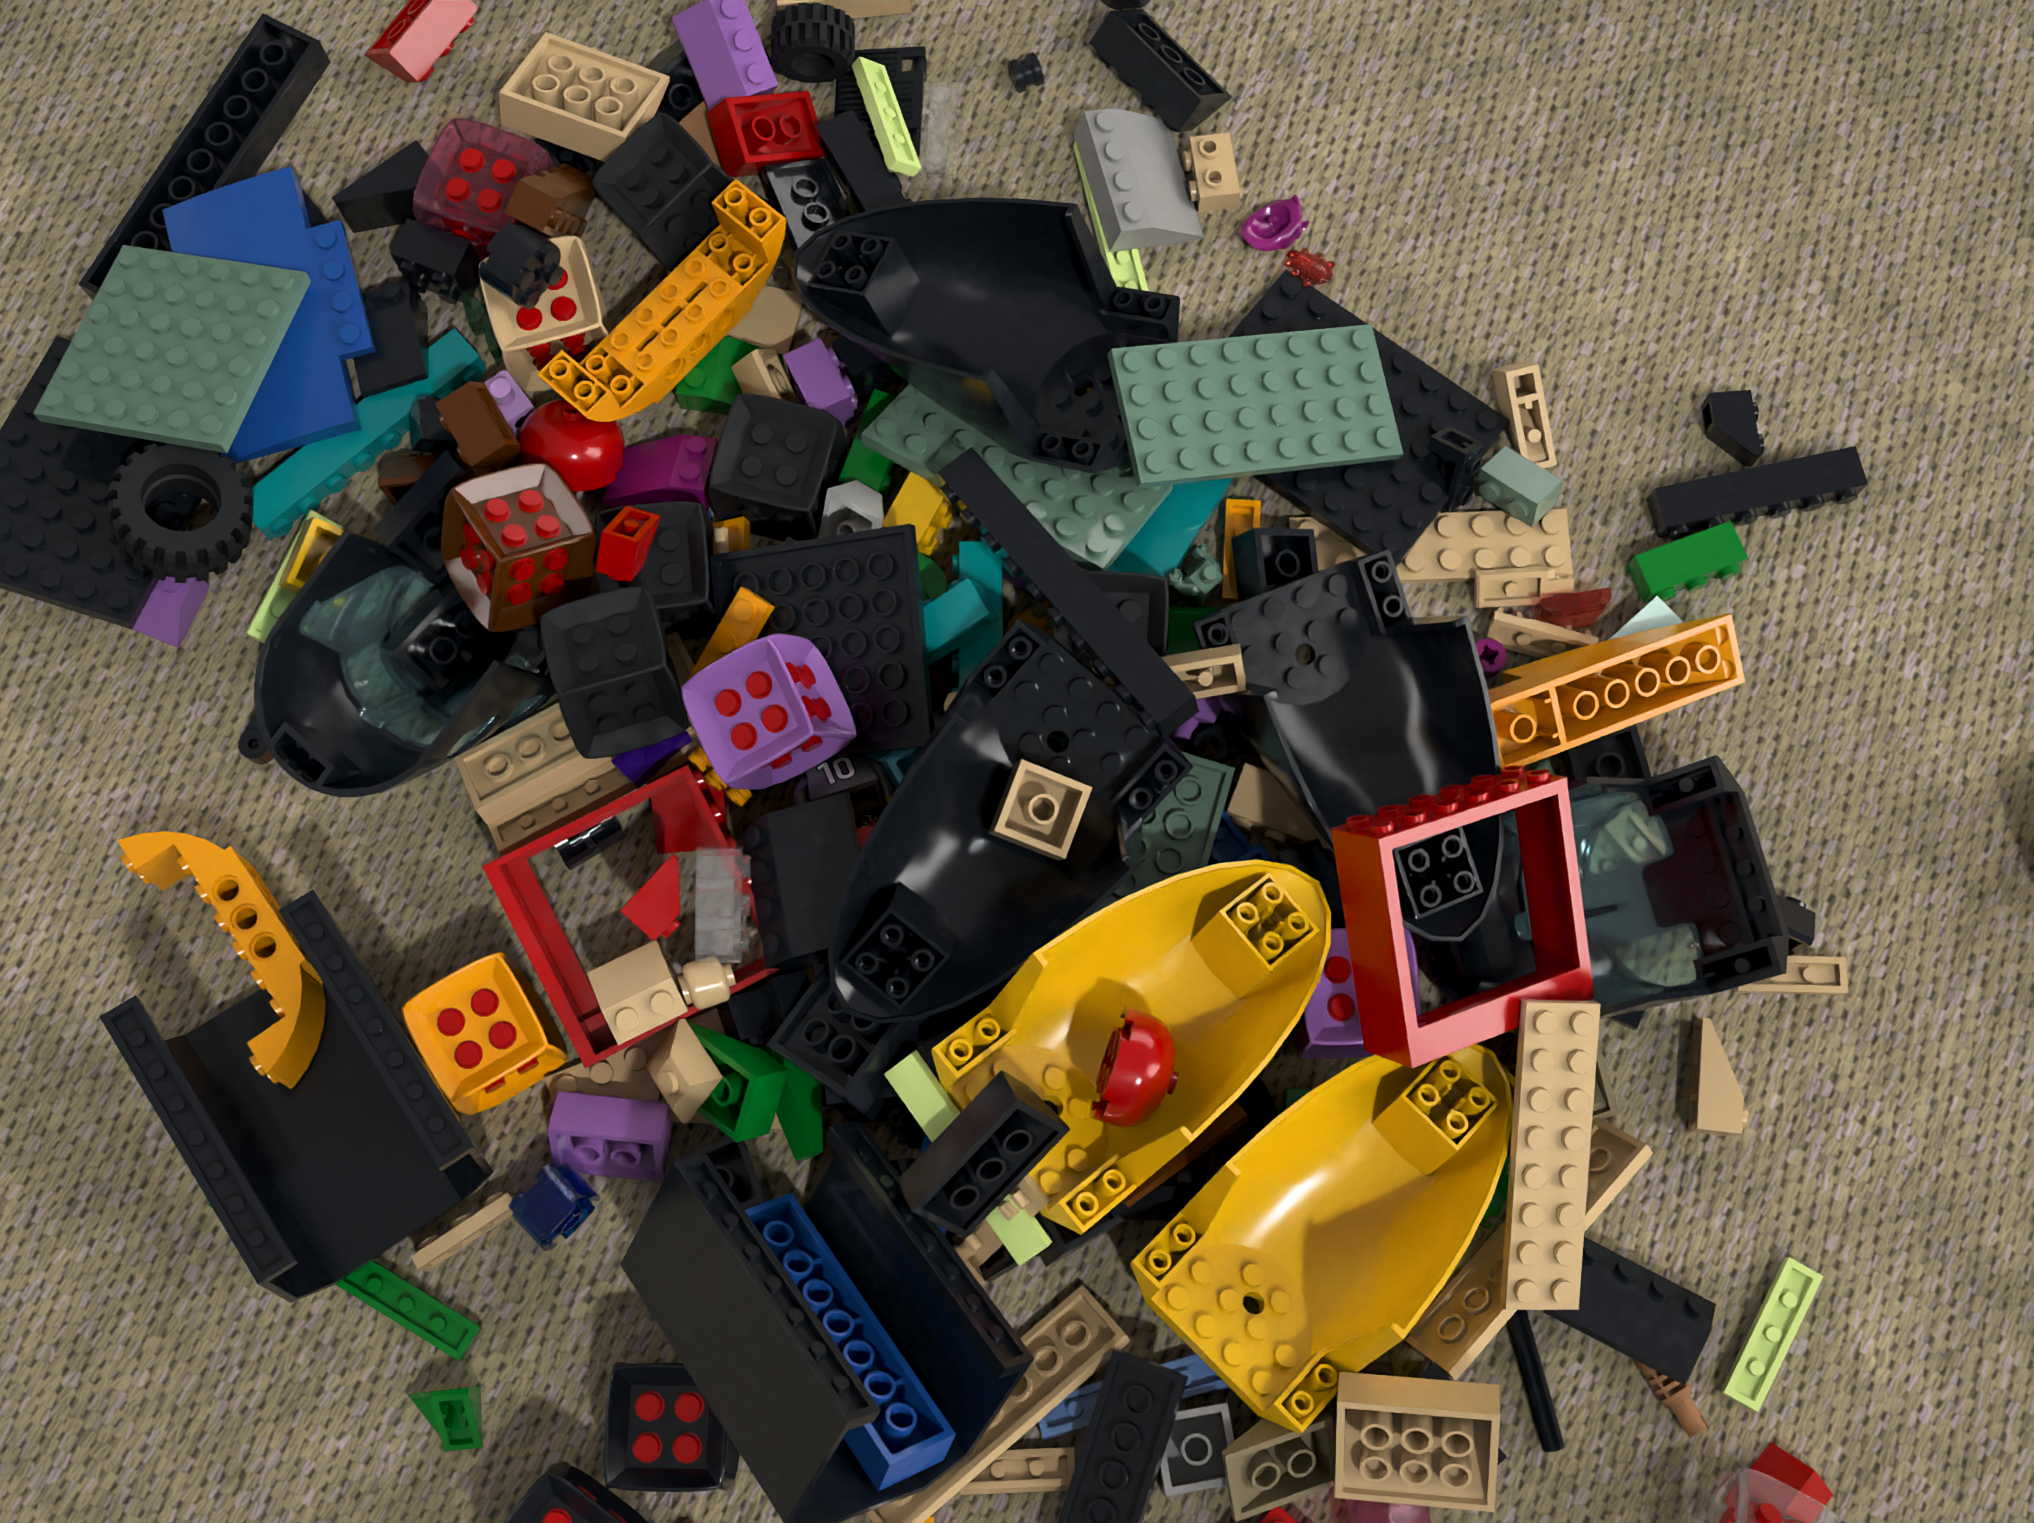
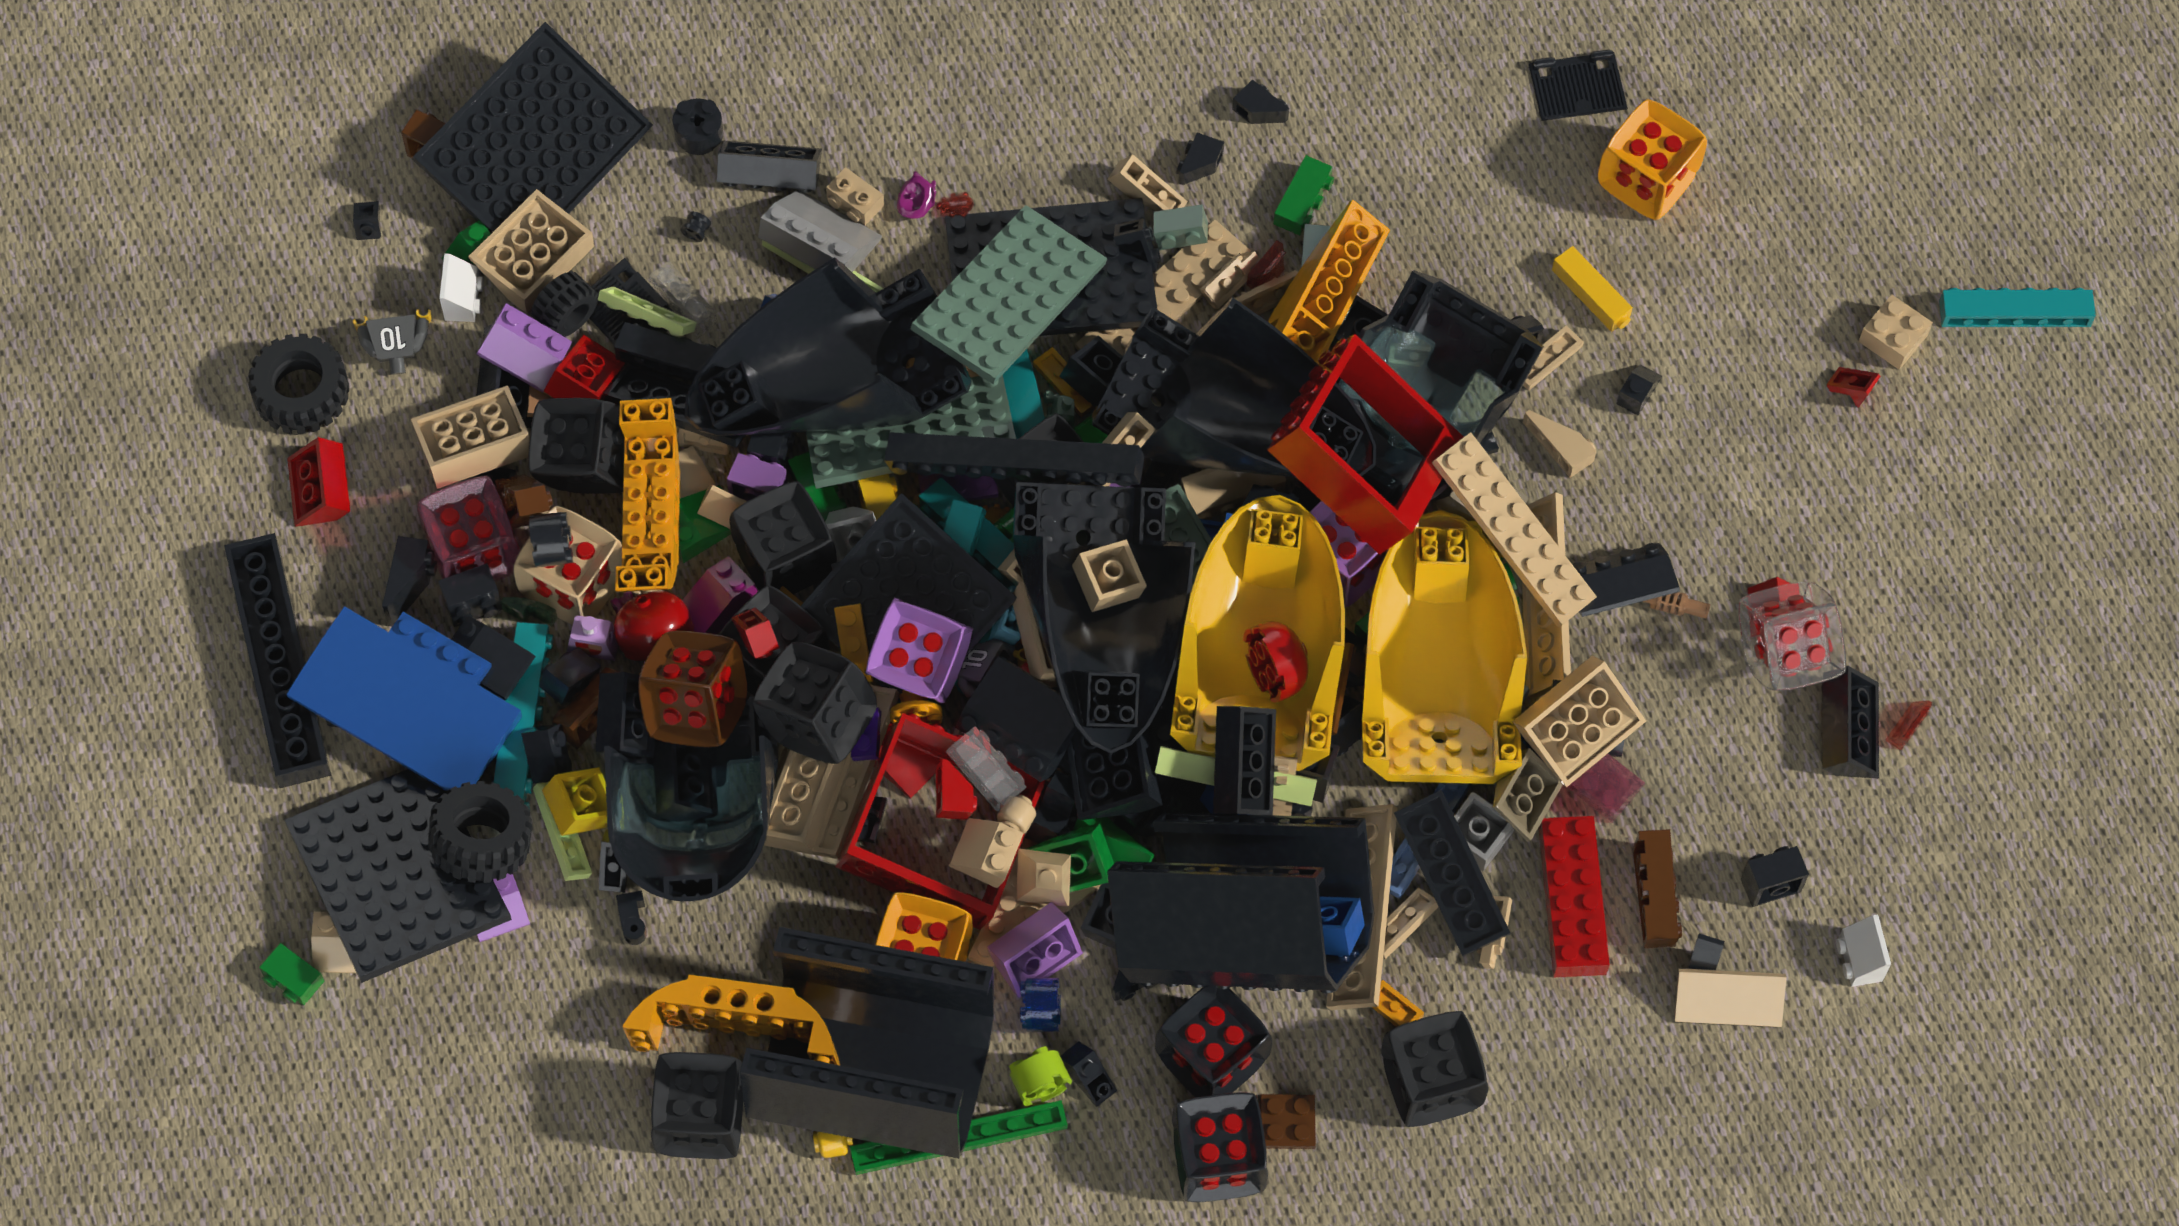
camera: 45 degrees left, 10 degrees down
(97, 969) = (697, 1105): none -> black piece
(173, 348) = (384, 751): sand green plate -> none
(346, 487) = (546, 752): none -> black brick
(453, 1415) = (1089, 1154): green slope -> none
(463, 1232) = (1010, 1039): tan plate -> none
(476, 1282) = (1039, 1076): none -> lime brick
(478, 427) = (607, 645): reddish brown slope -> none
(534, 1321) = (1088, 1073): none -> black slope
(1535, 1382) = (1612, 659): black axle -> none
(1614, 431) = (1201, 159): none -> black slope
(1757, 492) = (1304, 130): black brick -> none
(1771, 1334) = (1699, 536): yellowish green plate -> none
(1862, 1101) = (1638, 389): none -> black slope
(1915, 942) = (1592, 289): none -> yellow brick

